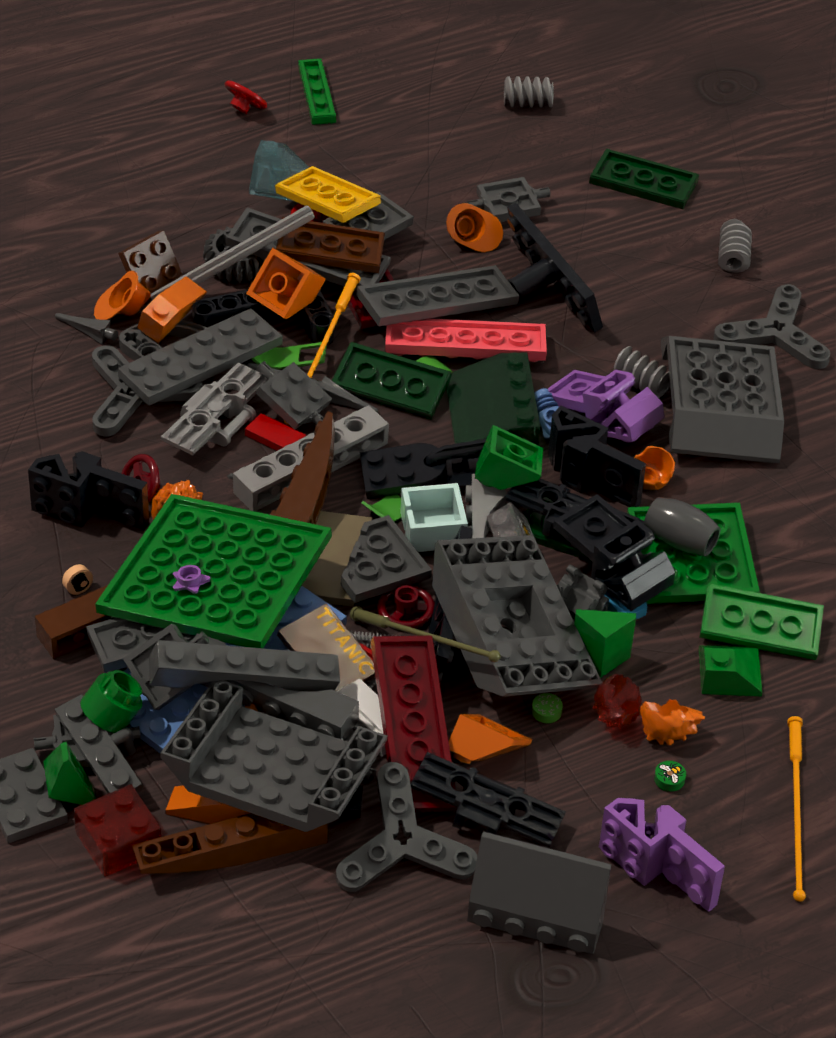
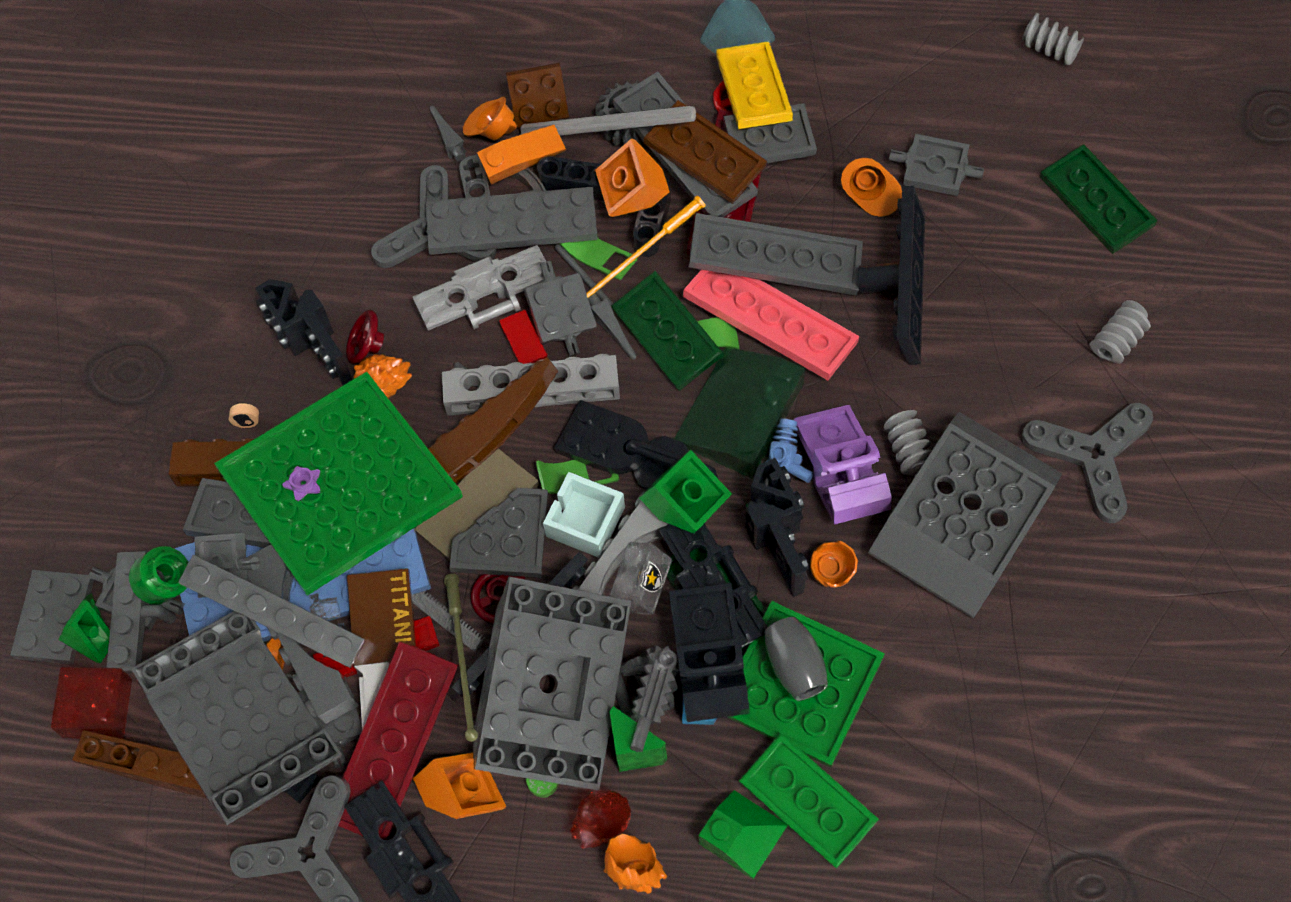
camera: 40 degrees right, 20 degrees up
(597, 581) = (652, 694): none -> flat silver piece

